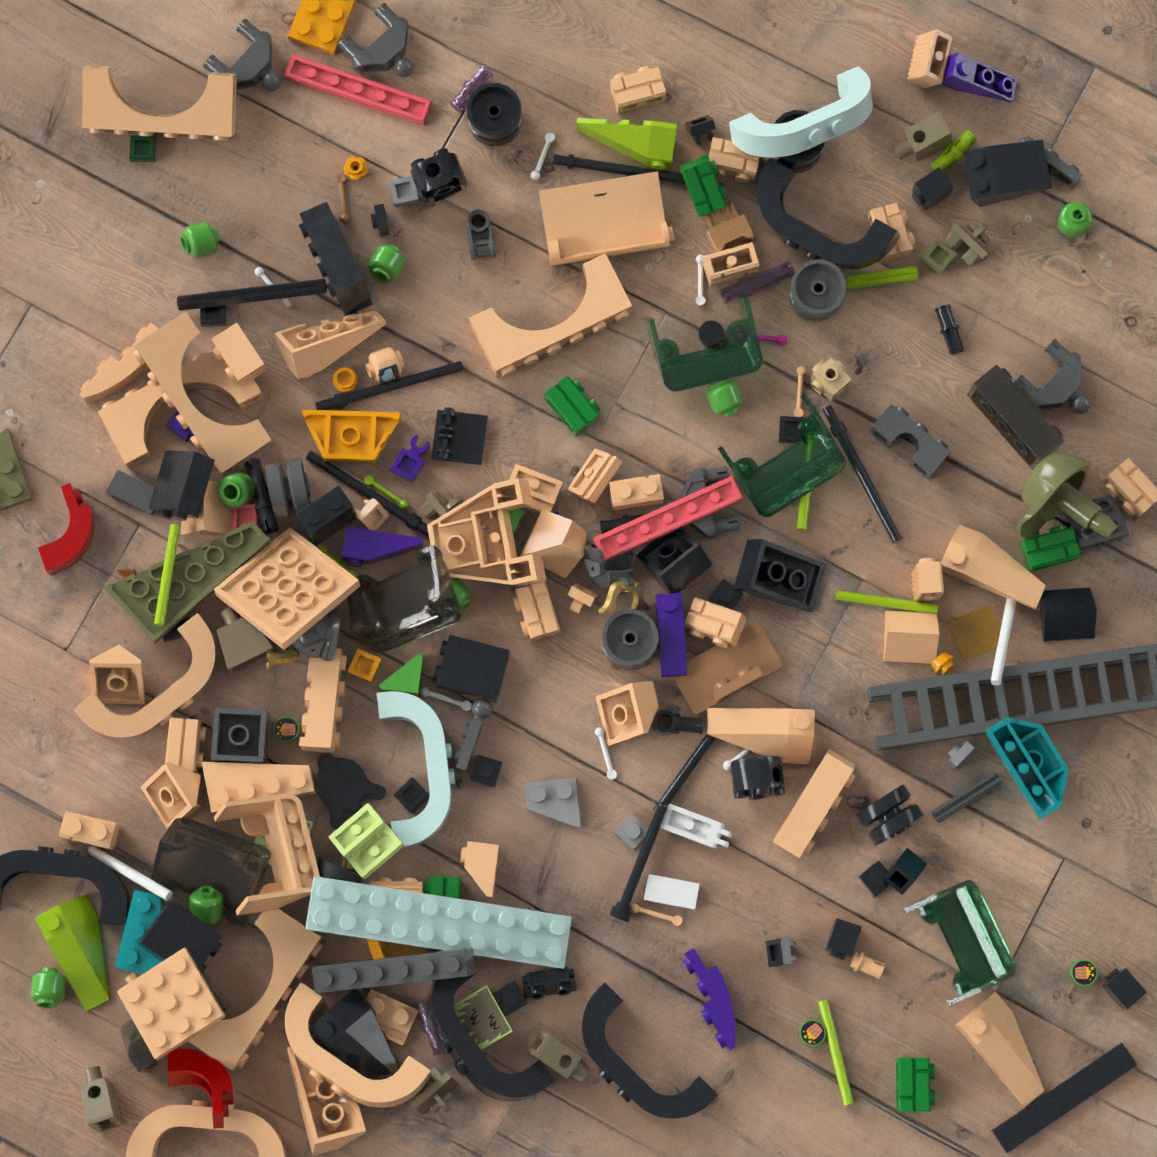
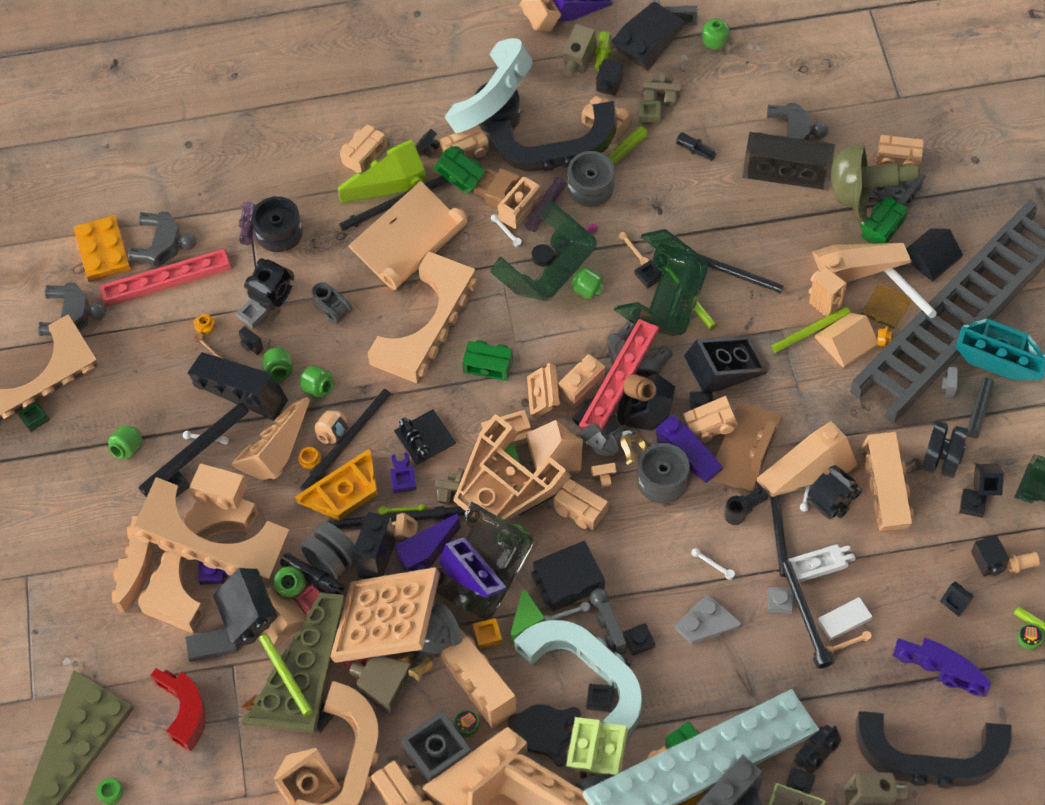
camera: 35 degrees left, 20 degrees down
(386, 605) = (469, 568): none -> dark purple slope
(406, 309) = (316, 381): none -> bright green head
(481, 864) = (695, 704): light nougat slope -> none
(549, 138) = (327, 218): white hinge -> none
(627, 711) = (703, 522): light nougat slope -> none
(671, 547) = (639, 388): none -> medium nougat brick
(837, 380) = (646, 220): tan brick -> none
(929, 451) = (750, 220): dark grey arch -> none

